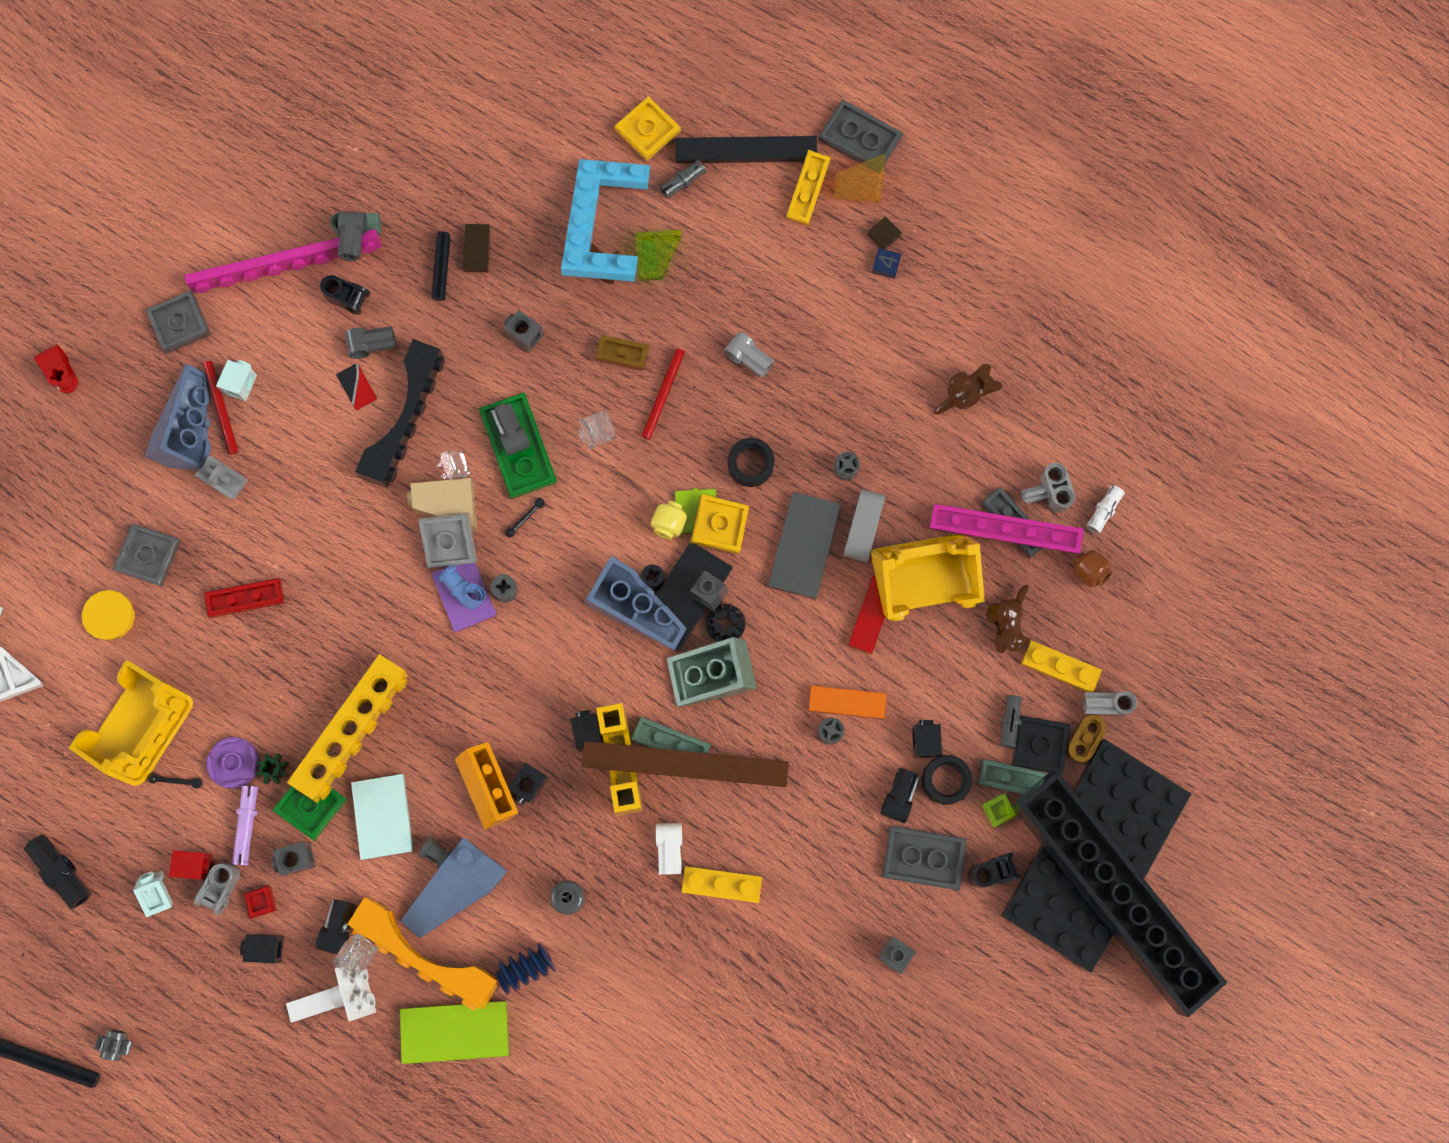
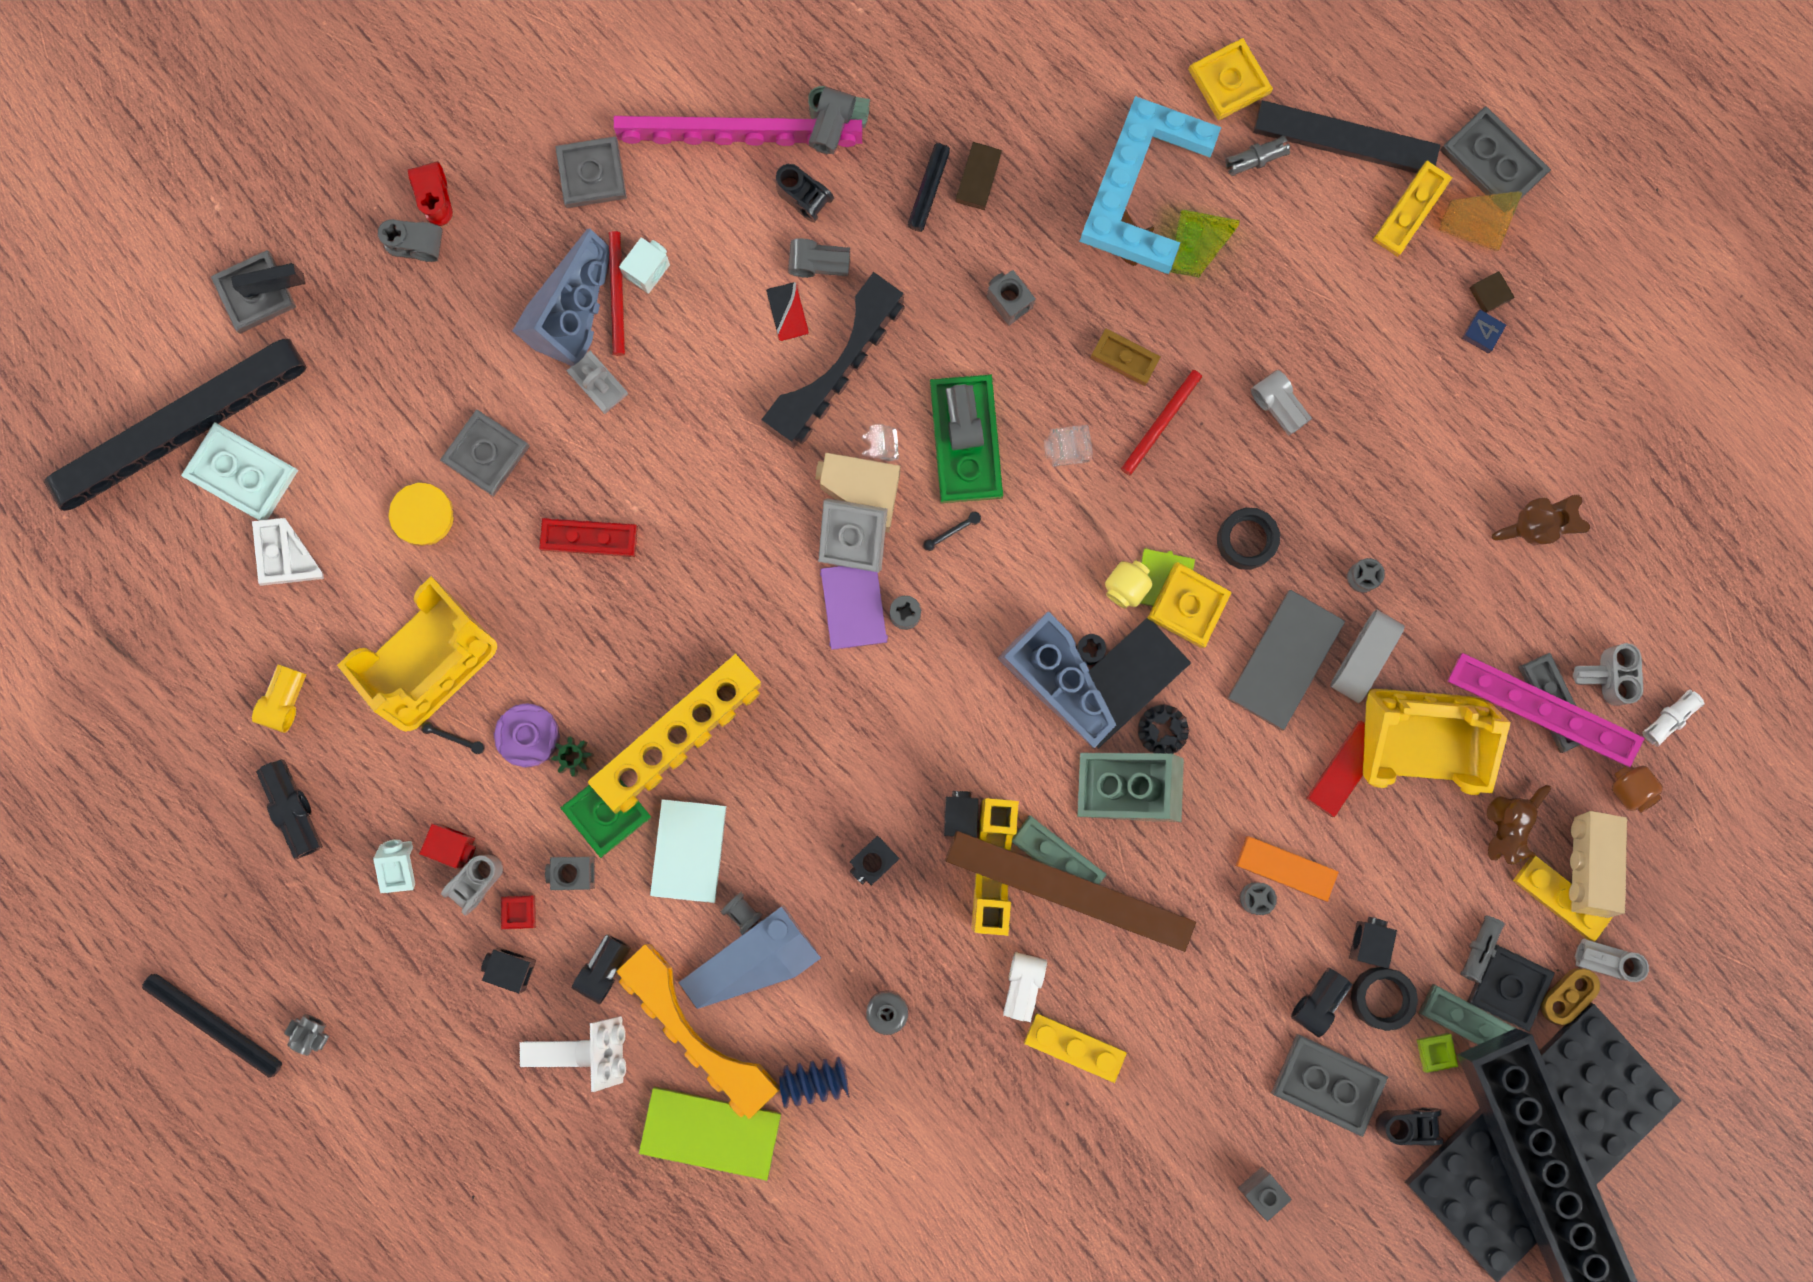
camera: 15 degrees right, 5 degrees up
(29, 793) = (277, 707): none -> yellow piece
(49, 408) = (416, 240): none -> dark grey piece
(245, 825) = (523, 815): lavender pin -> none
(355, 955) = (617, 1013): clear brick -> none
(460, 588) = (853, 599): medium blue connector -> none
(486, 785) = (823, 849): light orange brick -> none
(709, 591) = (1156, 686): dark grey brick -> none
(1078, 633) = (1598, 864): none -> tan brick

